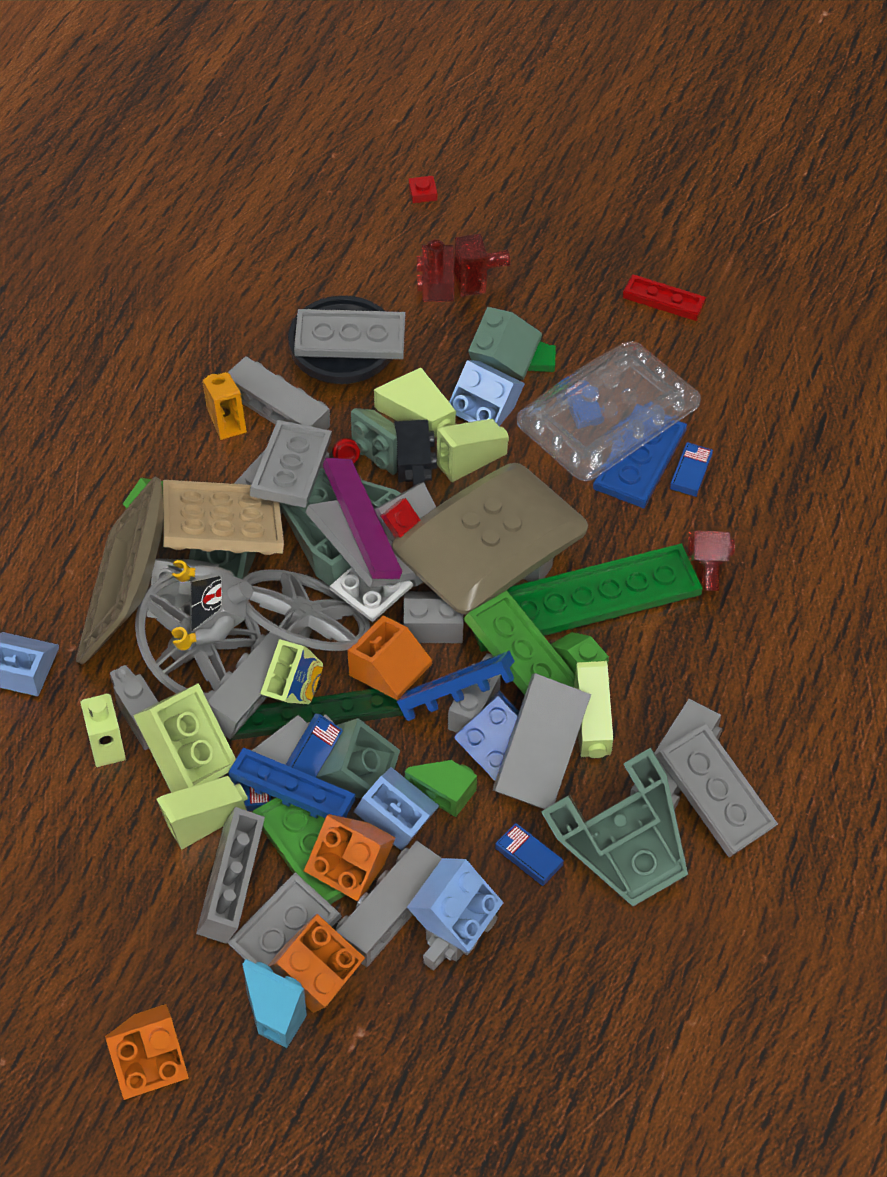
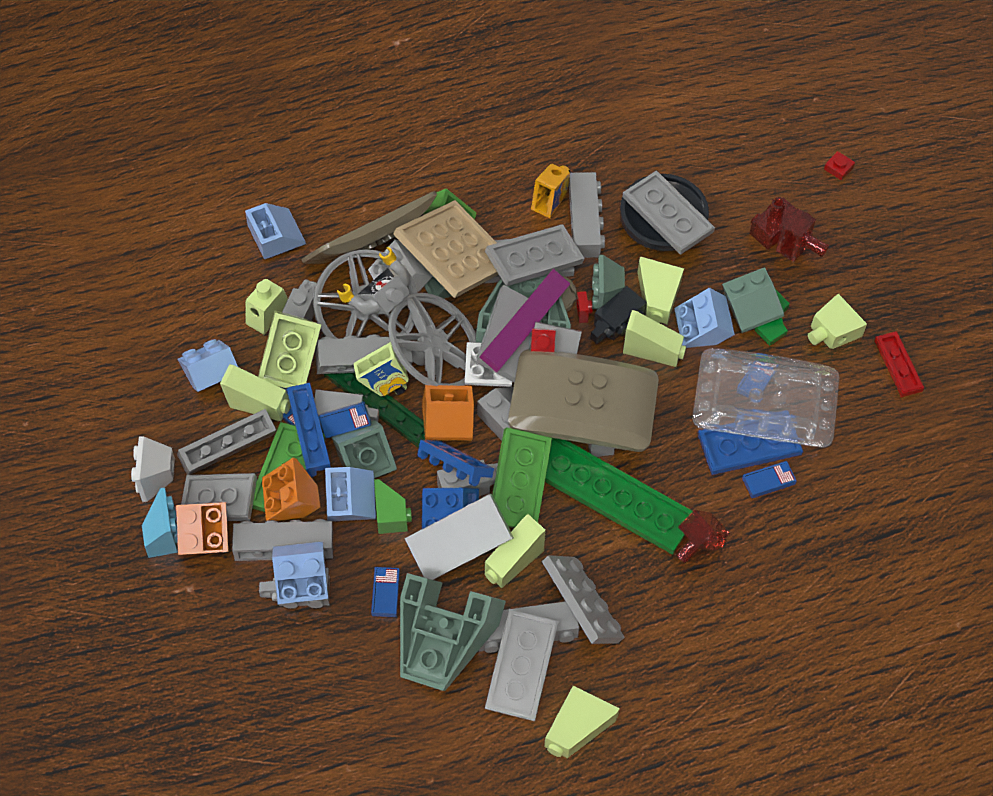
camera: 50 degrees right, 5 degrees up
(117, 830) = (207, 364): none -> light blue slope
(146, 1052) = (82, 486): orange slope -> none
(193, 964) = (153, 467): none -> white slope
(346, 449) = (582, 278): red plate -> none
(376, 472) = (583, 306): none -> red plate
(579, 648) = (553, 517): bright green slope -> none
(584, 307) = (836, 324): none -> yellowish green torso
(703, 692) = (583, 599): none -> light grey plate
(811, 788) = (579, 722): none -> yellowish green slope

